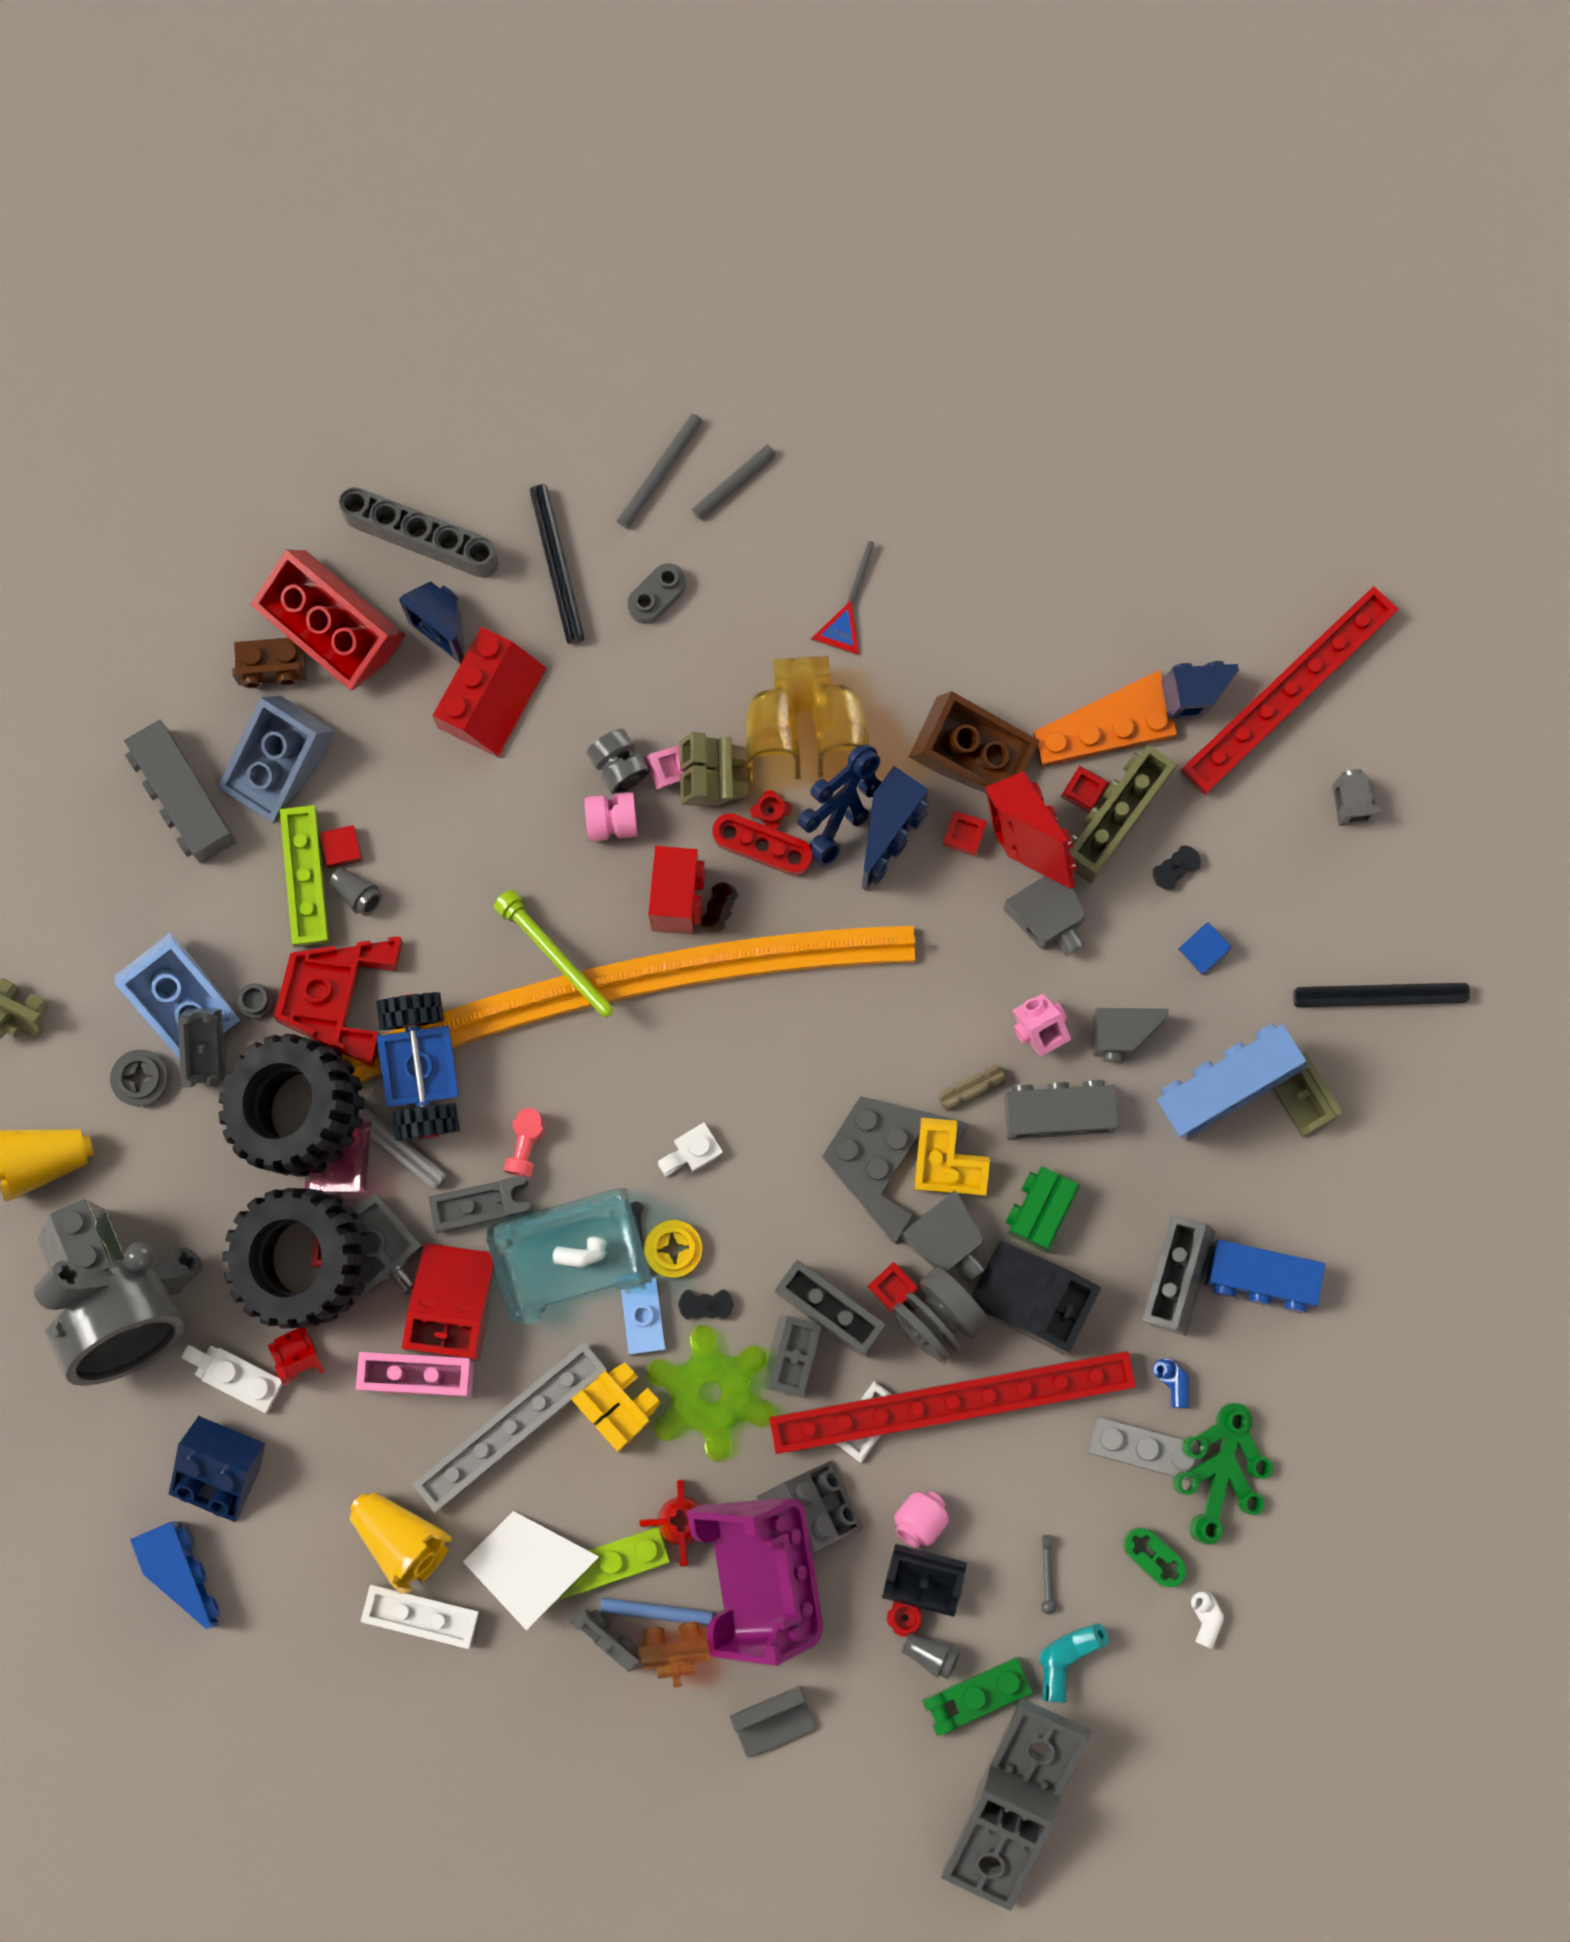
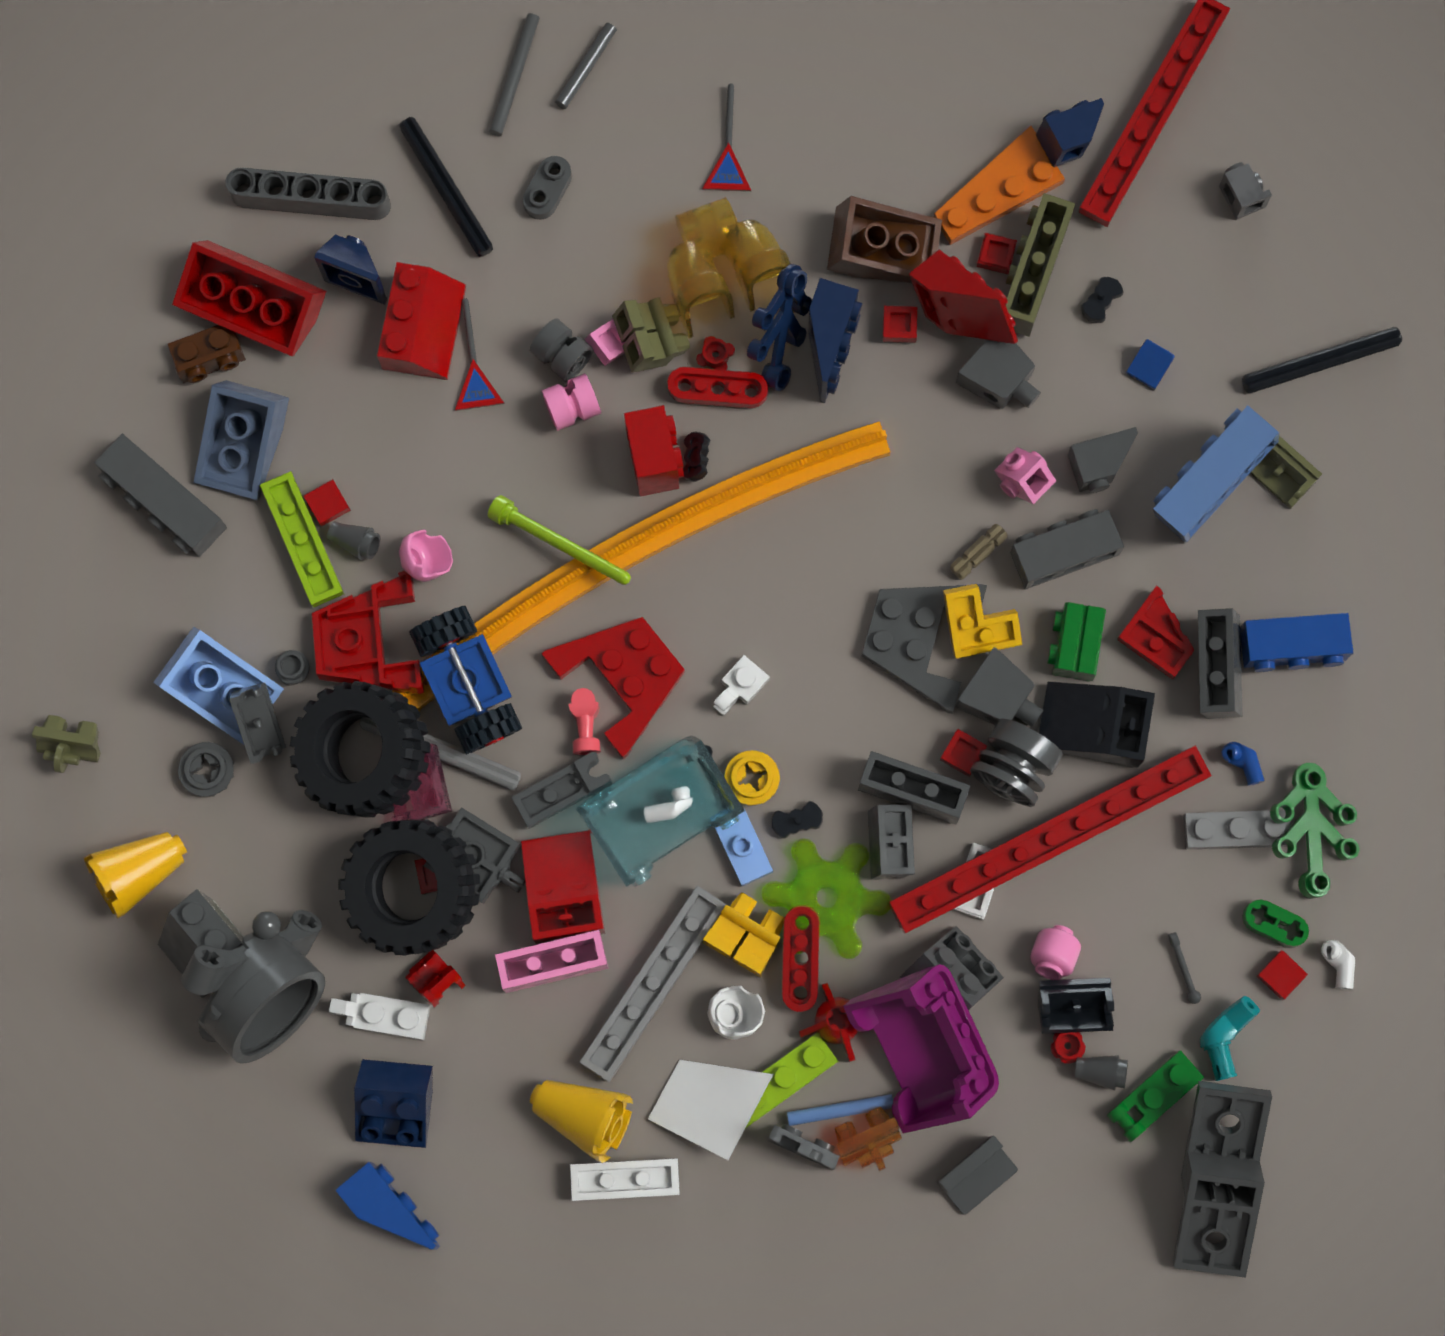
camera: 15 degrees left, 0 degrees up
(419, 929) = (425, 556): none -> bright pink hair
(524, 775) = (477, 389): none -> piece
(581, 1482) = (735, 1012): none -> white hair
(592, 1100) = (635, 667): none -> red wing
(653, 1458) = (797, 973): none -> red plate
(1125, 1227) = (1157, 636): none -> red wing
(1144, 1612) = (1282, 975): none -> red tile

